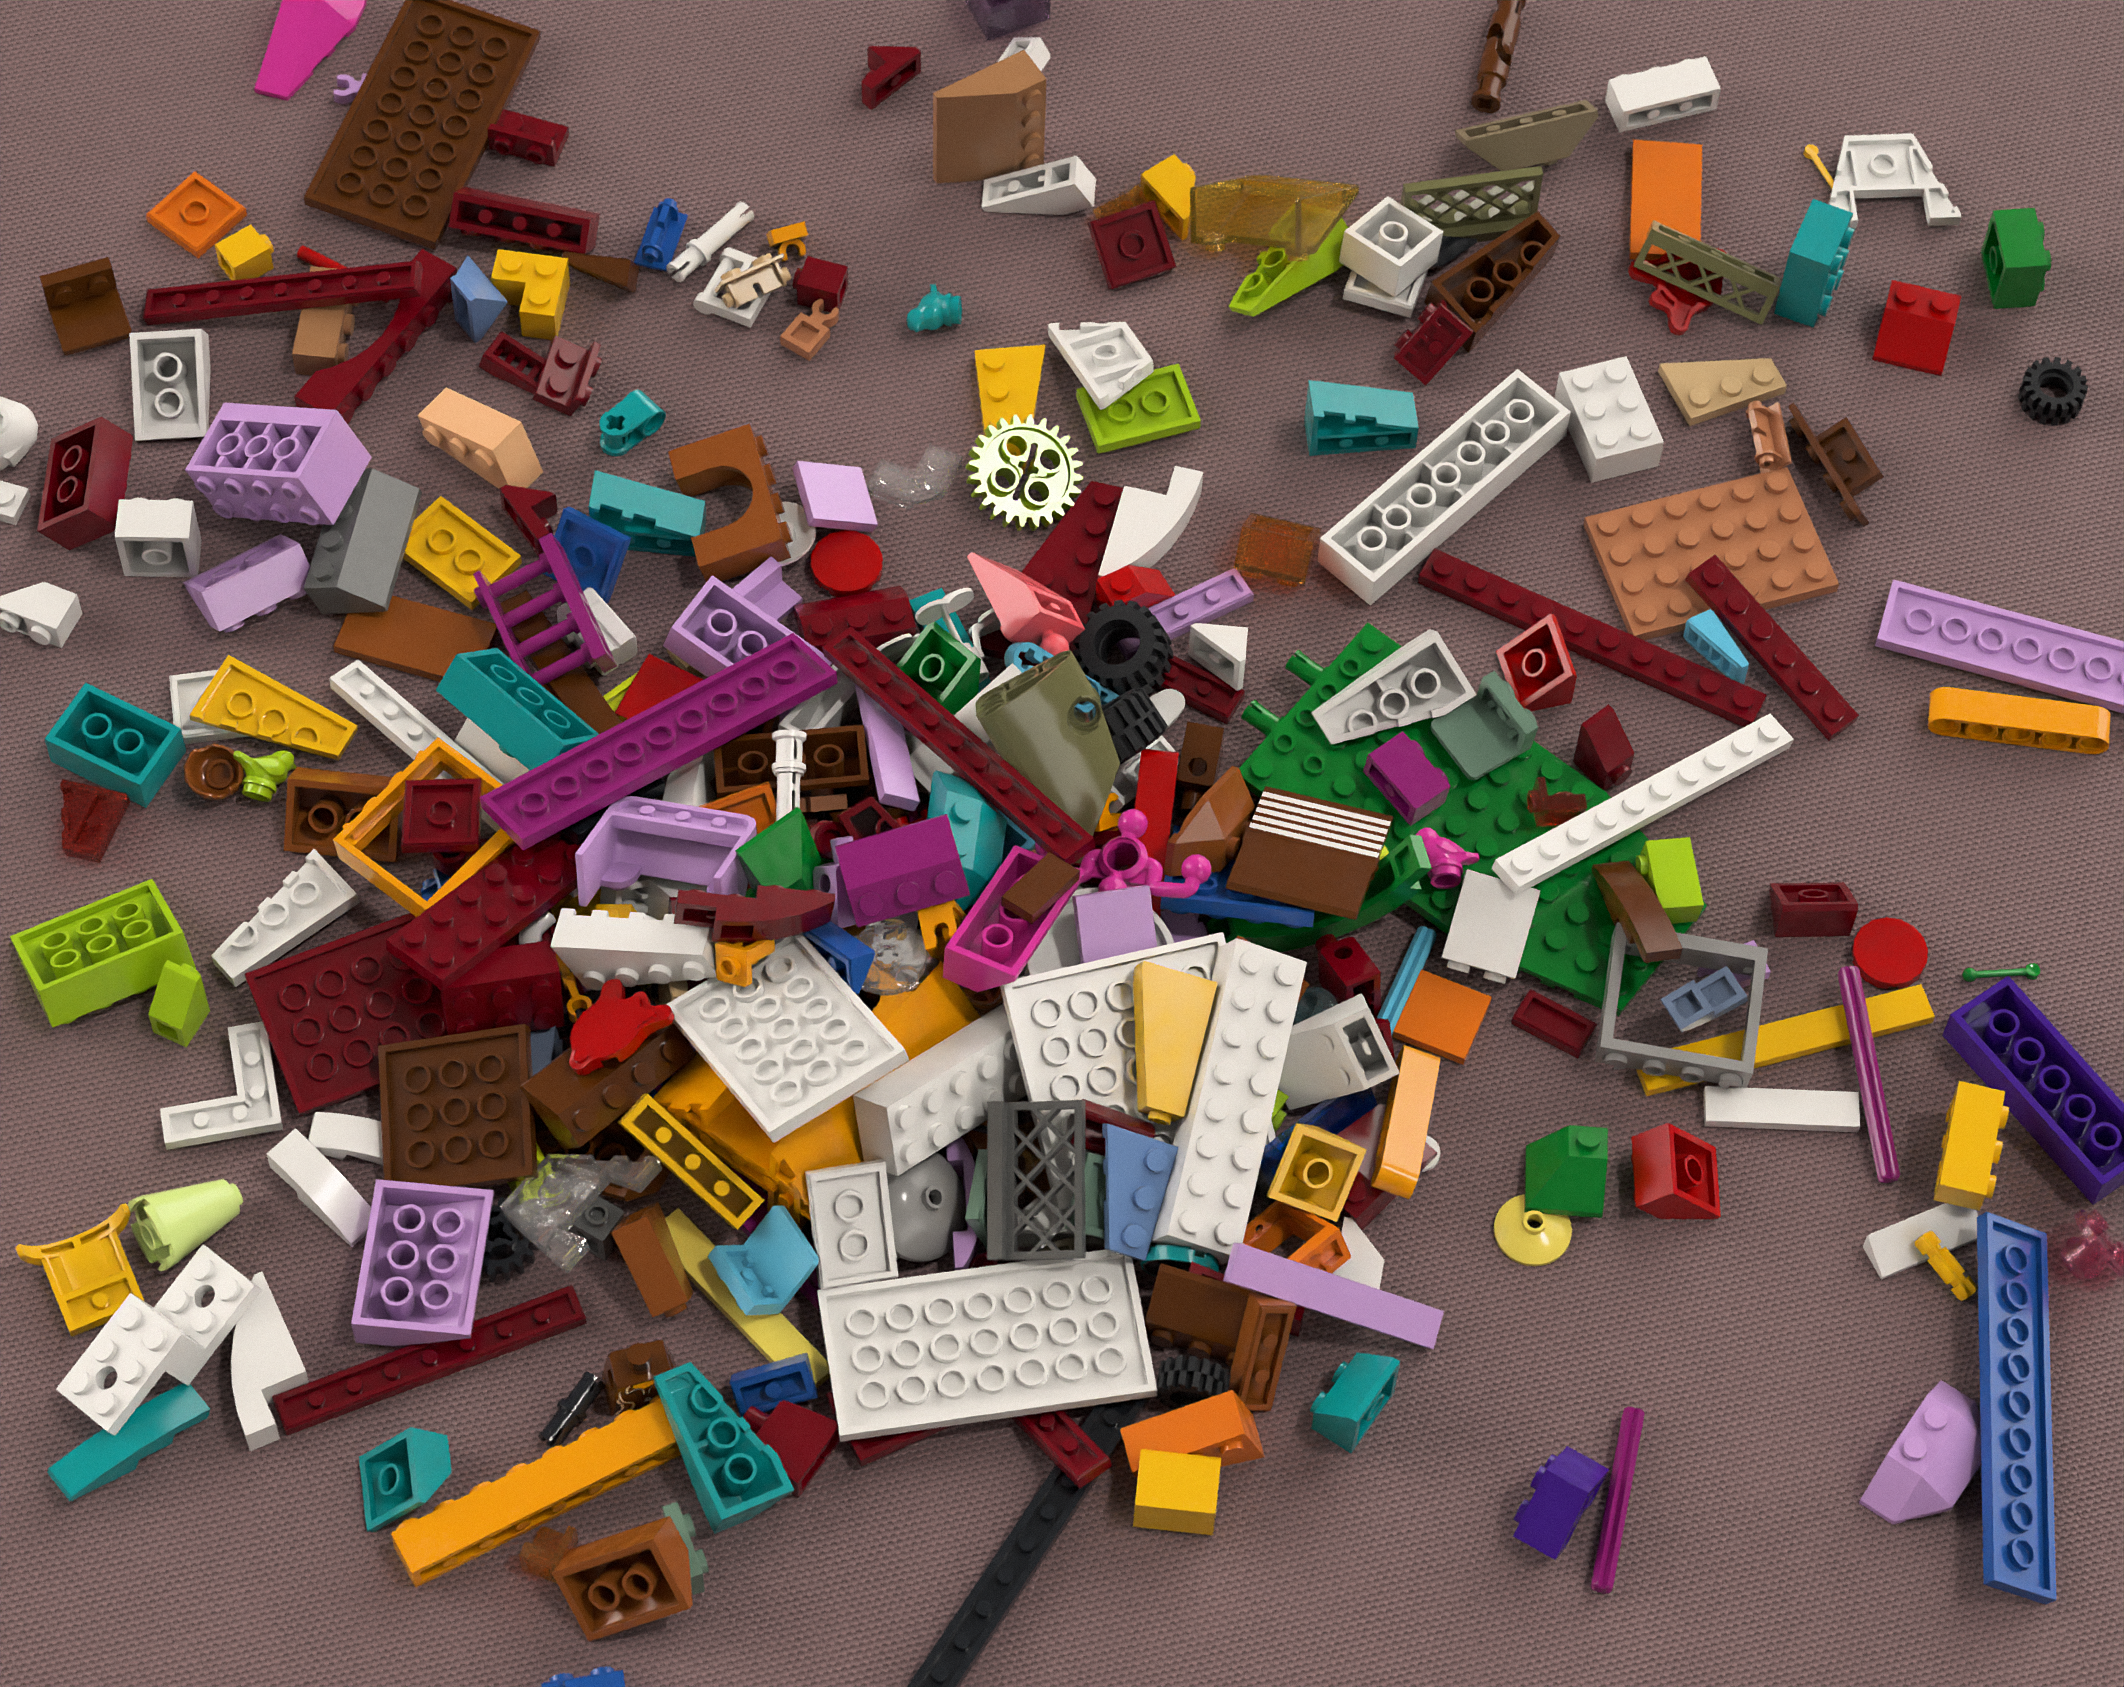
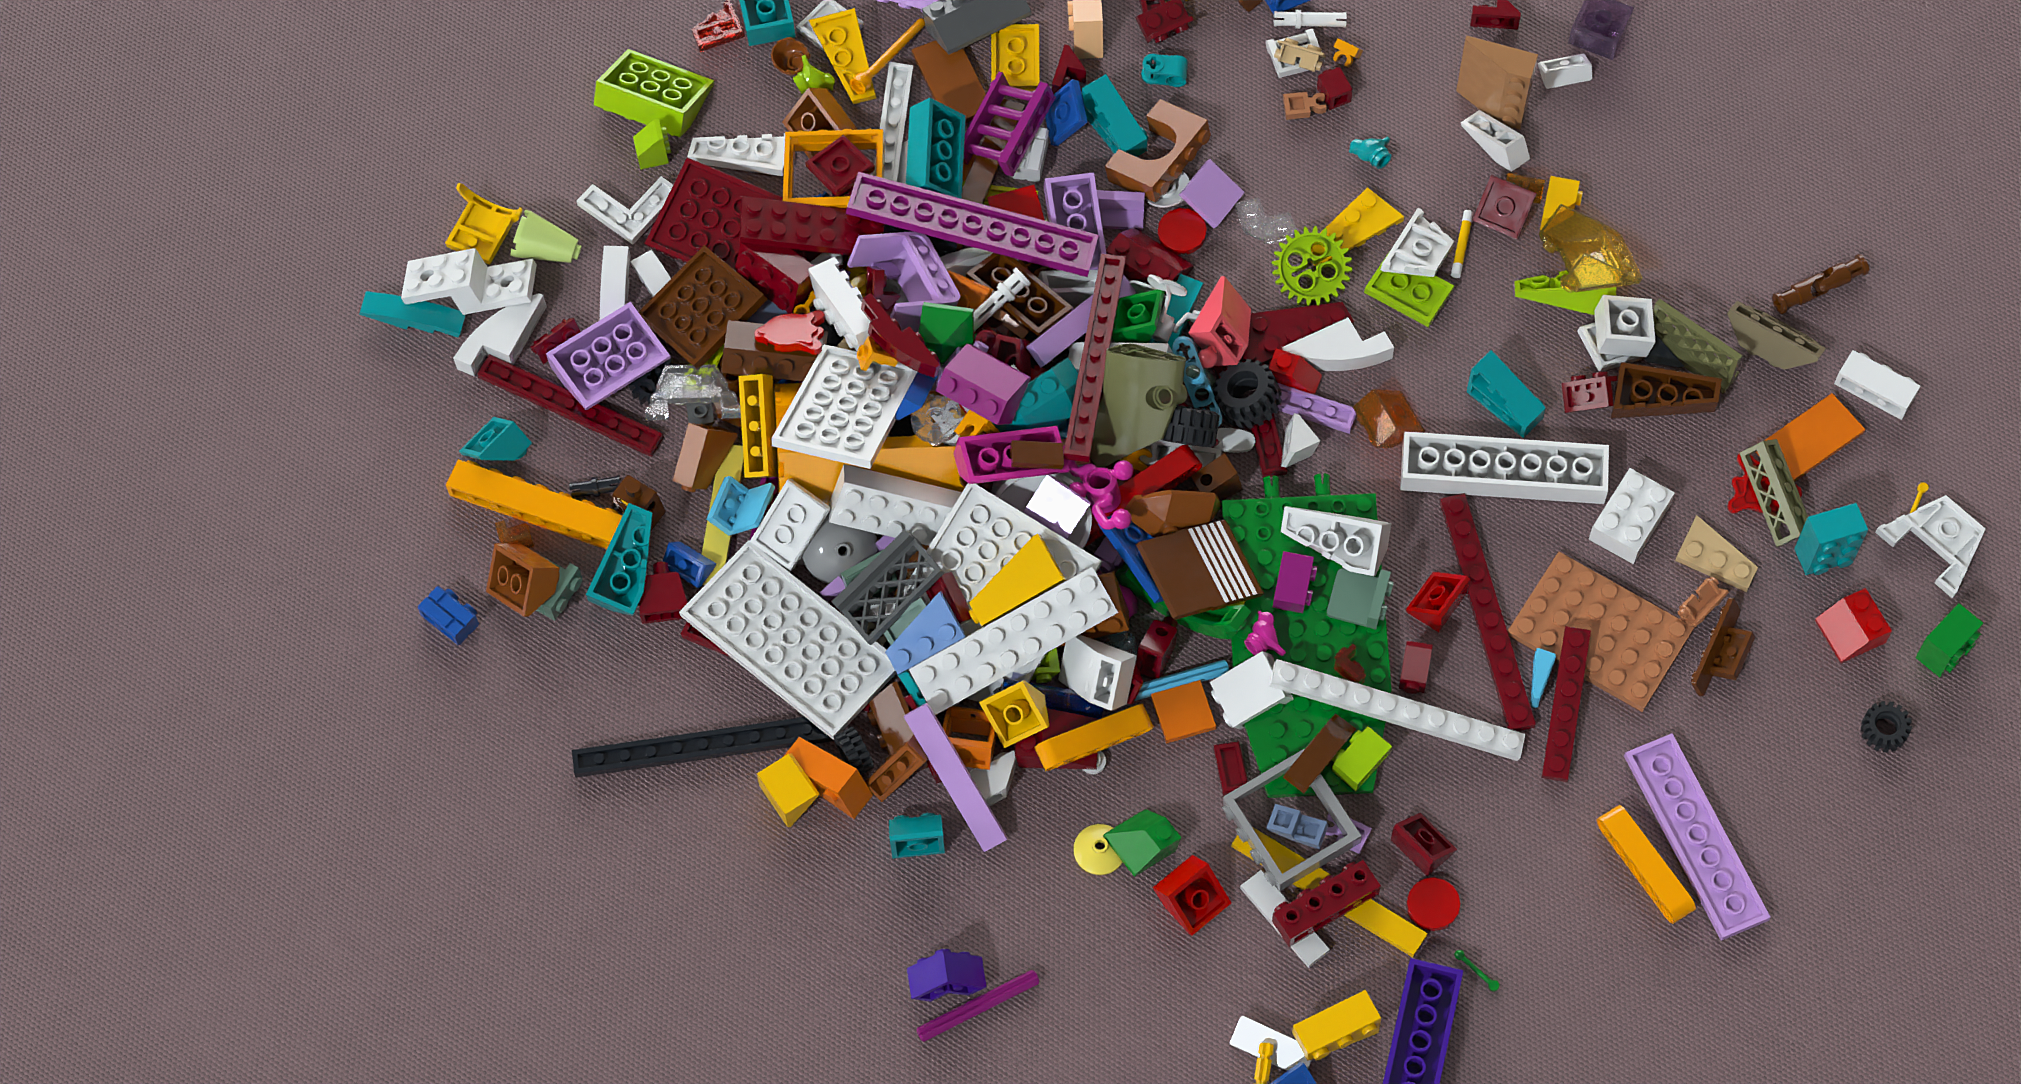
camera: 55 degrees right, 5 degrees up
(329, 1292) = (559, 334): none -> dark red hinge
(332, 720) = (862, 81): none -> light orange piece
(635, 894) = (875, 282): none -> dark red slope
(1065, 1445) = (769, 720): dark red tile -> none
(1126, 315) = (1462, 244): none -> yellow bar
(1807, 1050) = (1325, 903): none -> dark red brick
(1868, 1074) = (1343, 946): magenta axle -> none

